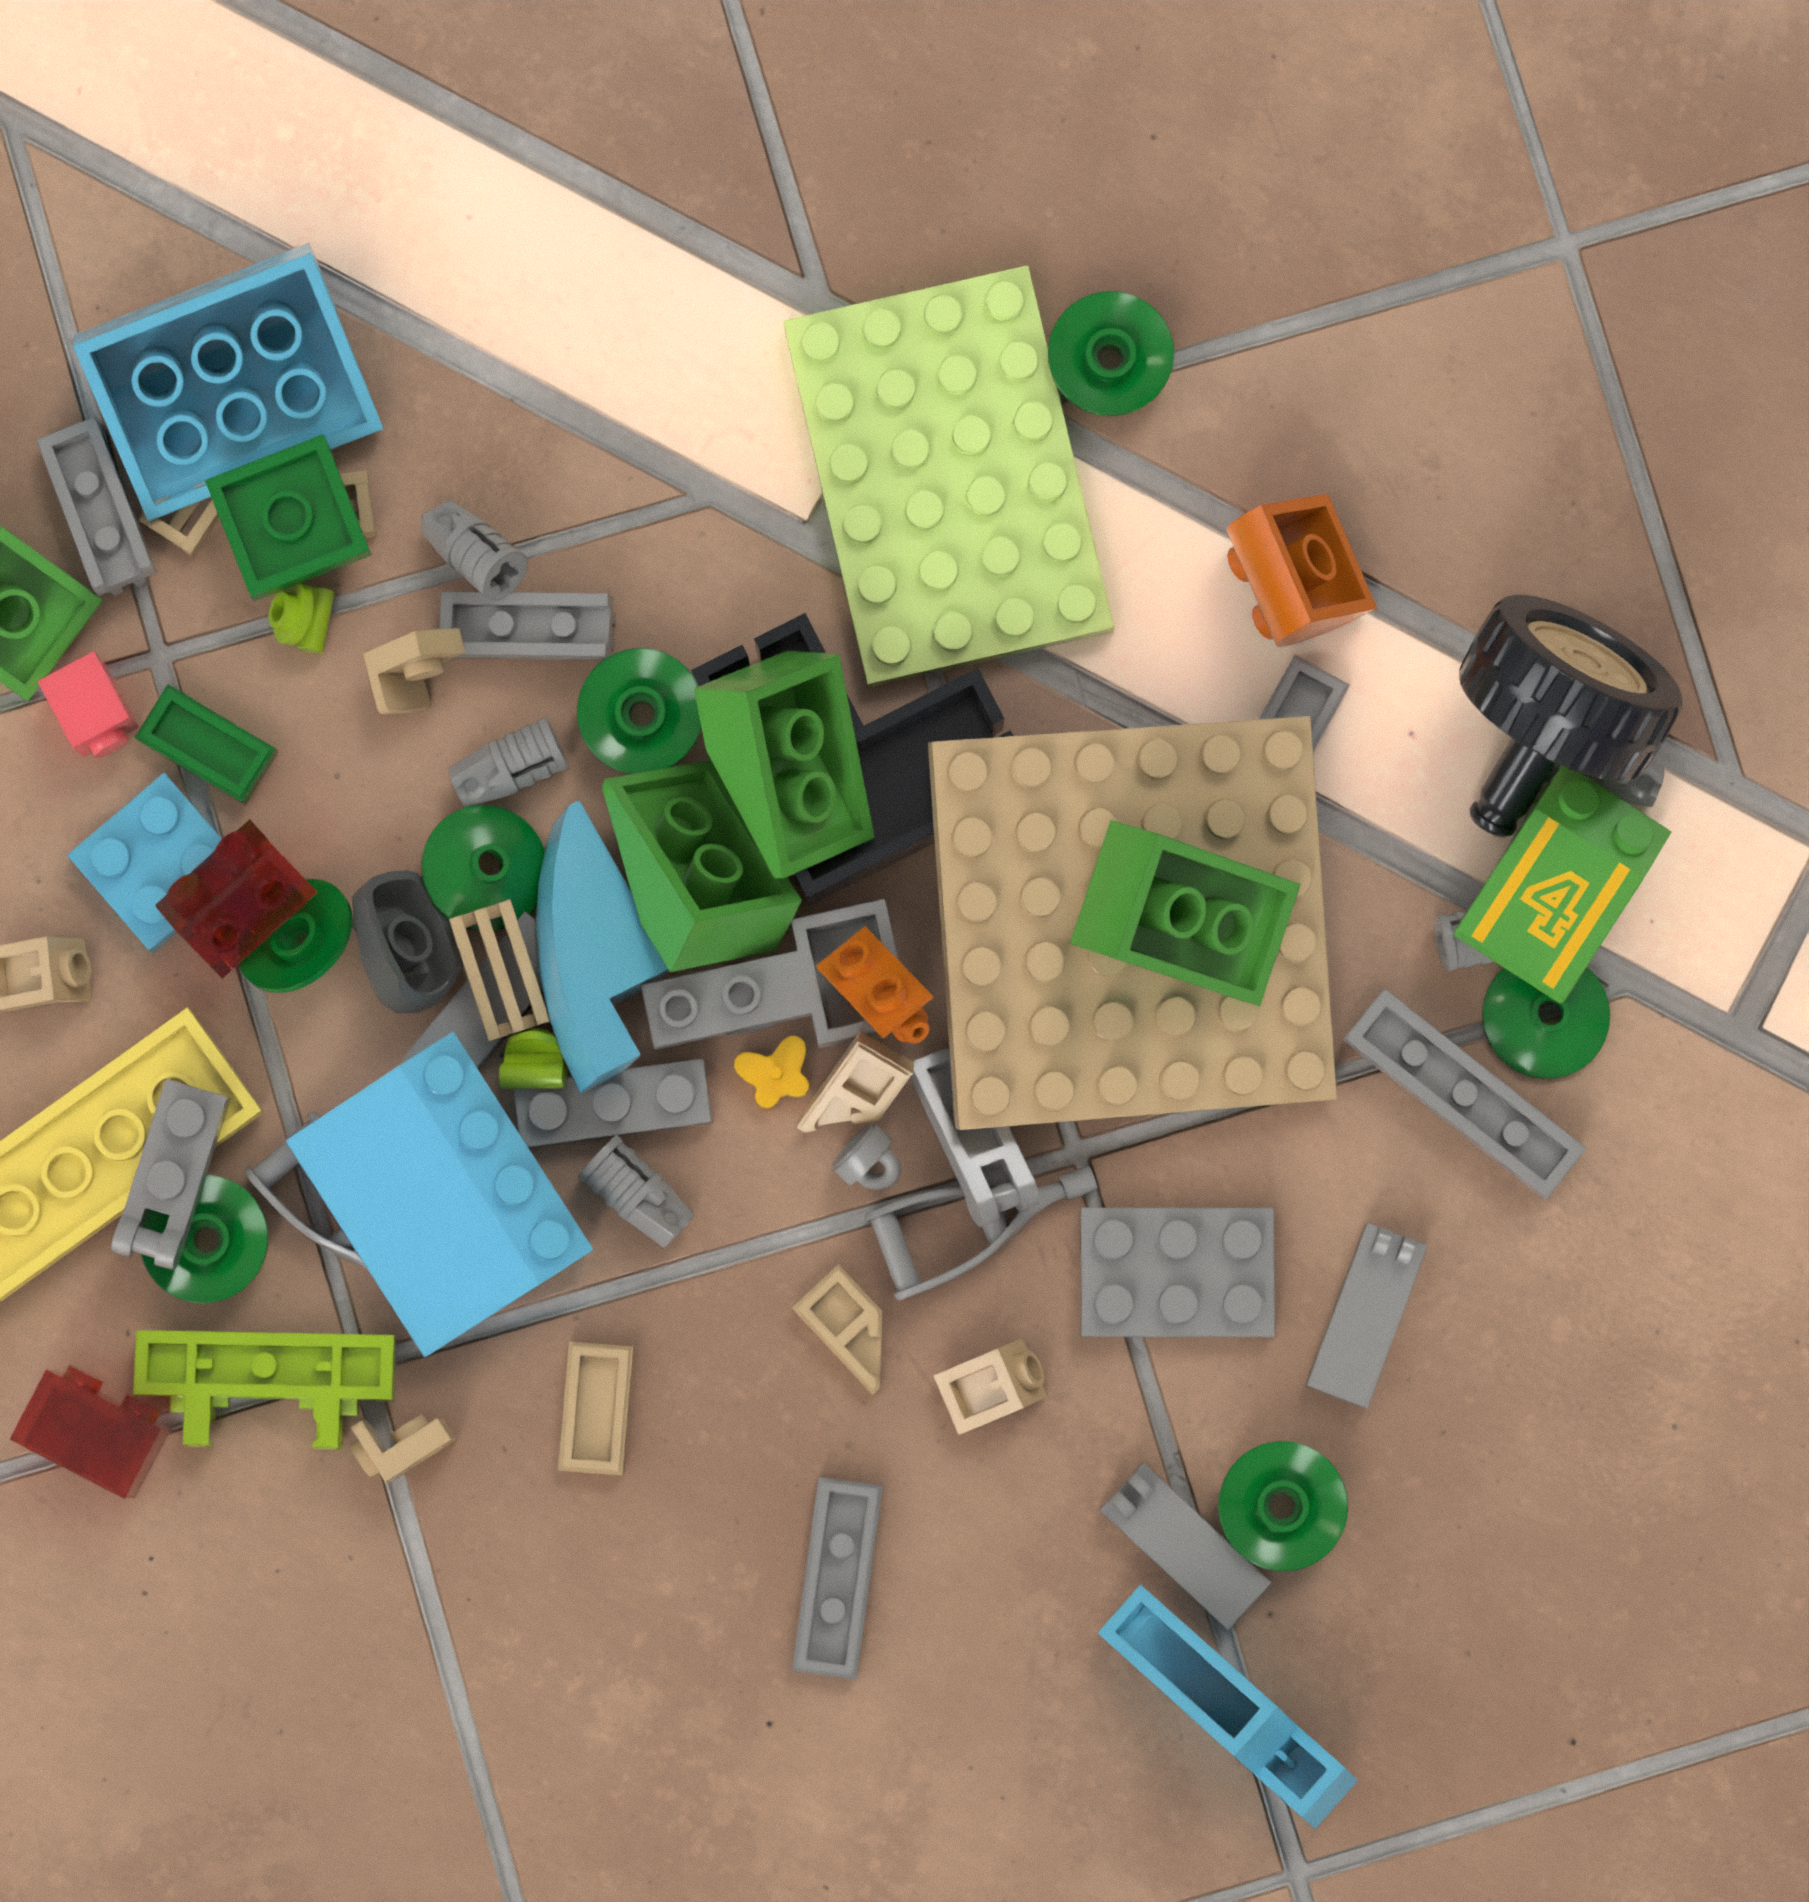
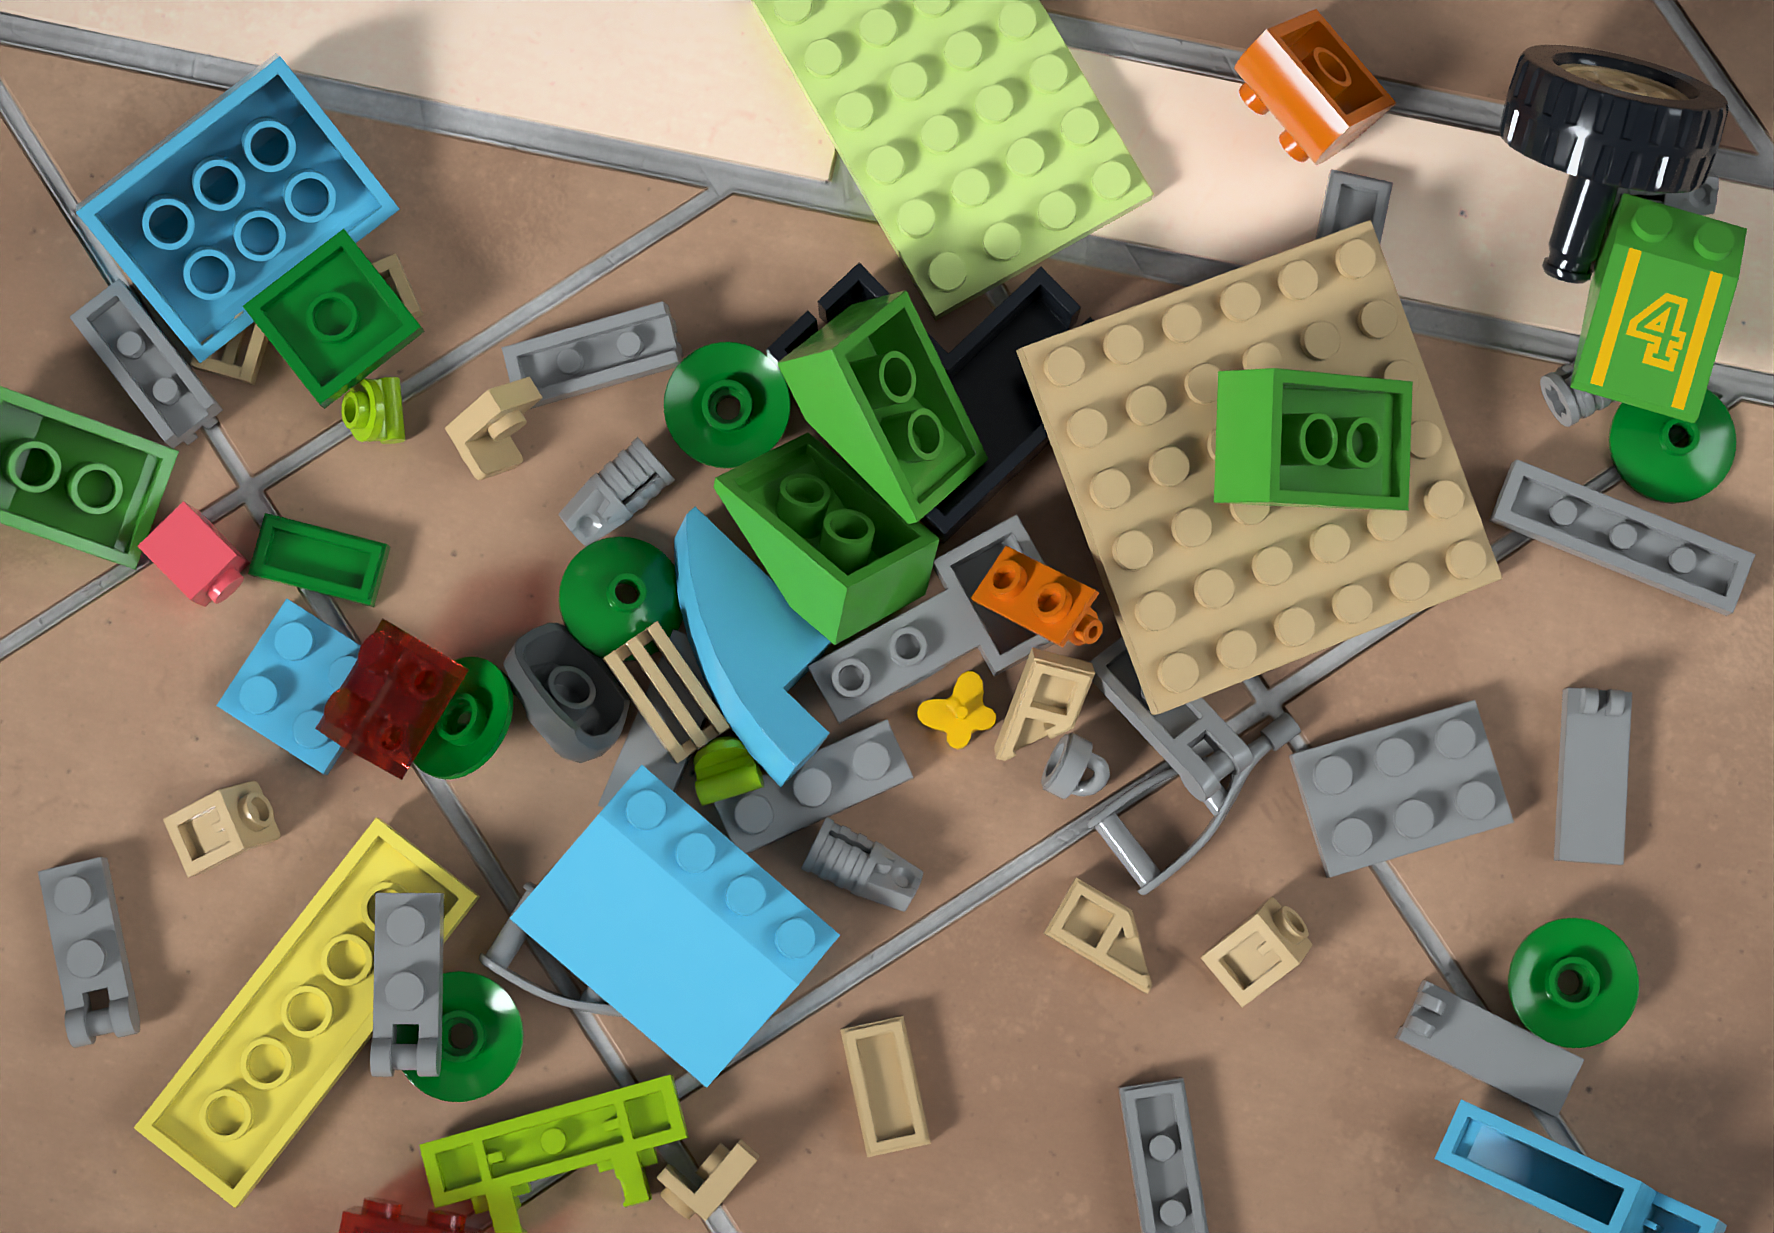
camera: 15 degrees left, 0 degrees up
(474, 550) = (522, 298): light grey hinge -> none

